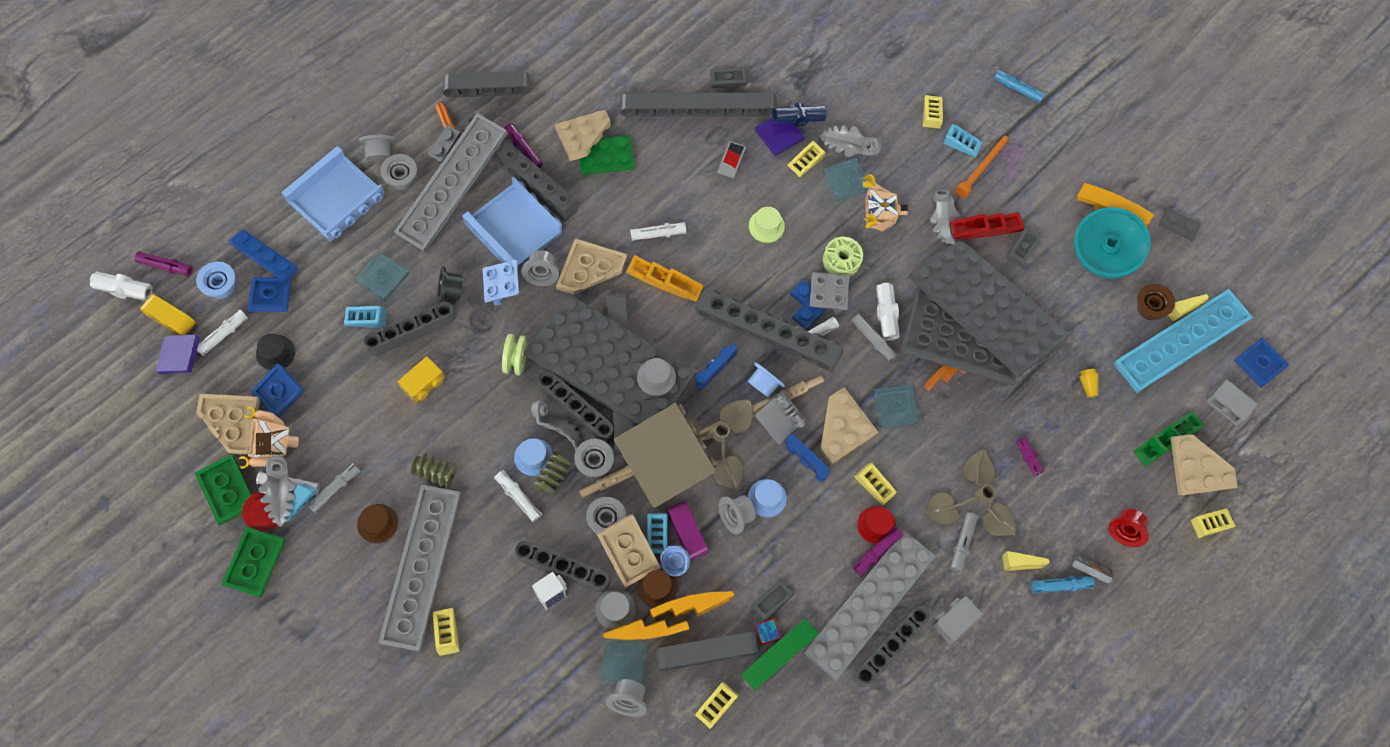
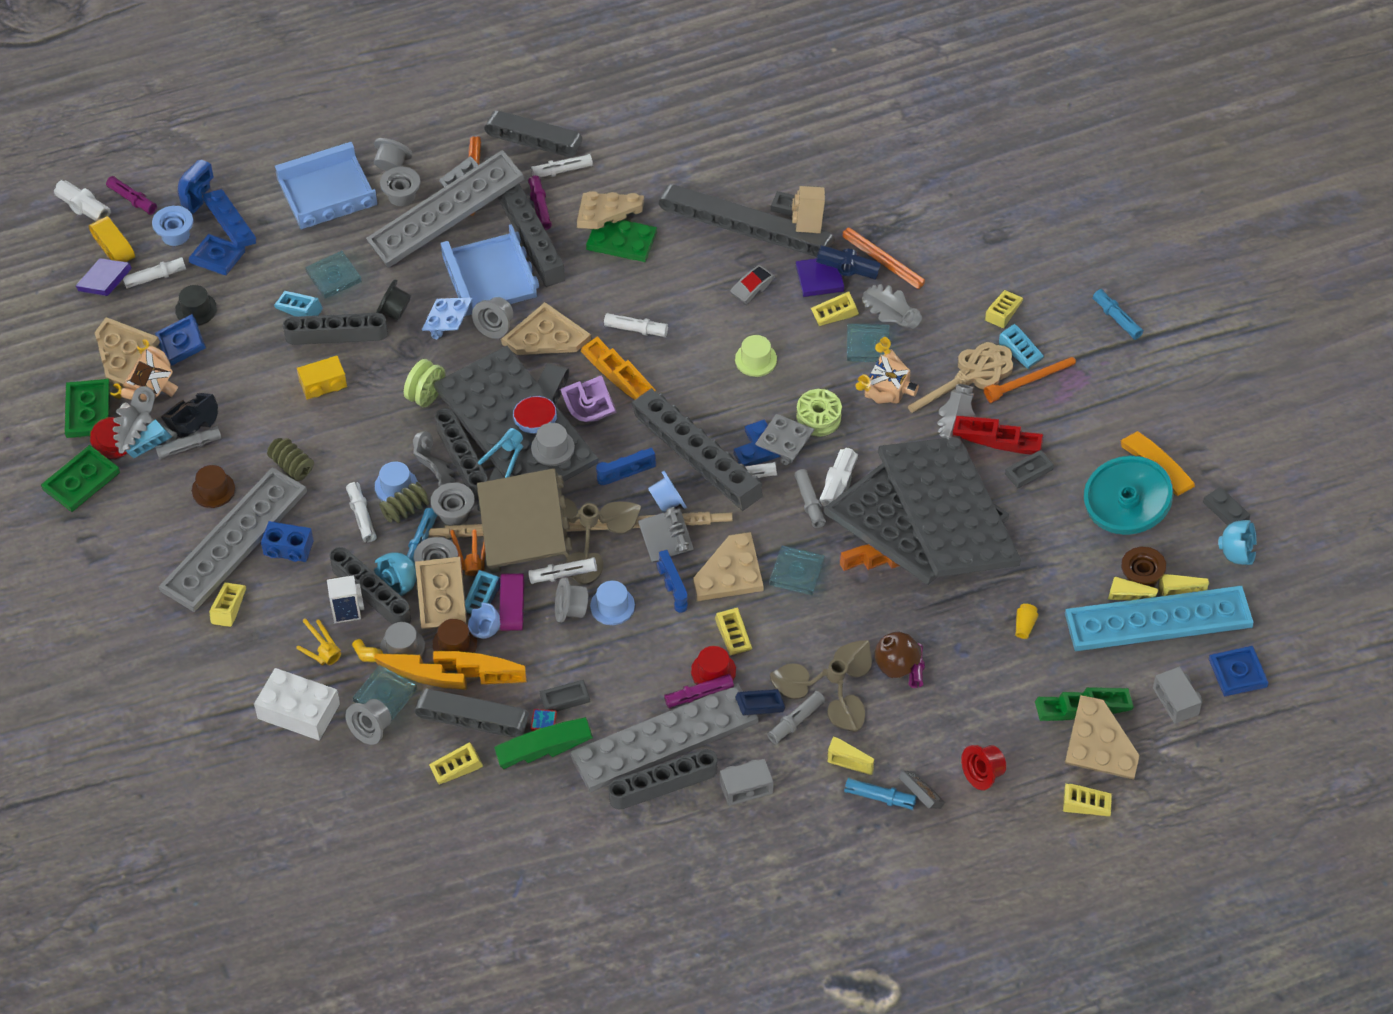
camera: 30 degrees right, 15 degrees down
(216, 236) = (194, 184): none -> blue brick
(325, 461) = (189, 416): none -> black brick
(469, 546) = (287, 538): none -> blue brick
(540, 95) = (553, 168): none -> white pin
(556, 643) = (328, 651): none -> yellow plant
(556, 707) = (297, 704): none -> white brick
(580, 502) = (427, 520): none -> dark azure pin
(580, 544) = (397, 572): none -> medium azure cylinder
(589, 631) = (365, 653): none -> yellow arm
(620, 388) = (509, 442): none -> medium azure plant
(627, 353) = (533, 413): none -> red tile
(637, 507) = (472, 563): none -> orange plant
(659, 318) = (589, 400): none -> lavender brick
(714, 485) = (537, 575): none -> white pin
(751, 79) = (808, 209): none -> tan brick
(820, 99) = (883, 257): none -> orange axle
(931, 541) = (760, 702): none -> dark blue tile
(940, 155) = (970, 372): none -> tan piece
(1016, 455) = (897, 654): none -> reddish brown cylinder
(1150, 325) = (1128, 590): none -> light yellow slope
(1208, 252) = (1238, 542): none -> medium azure cylinder

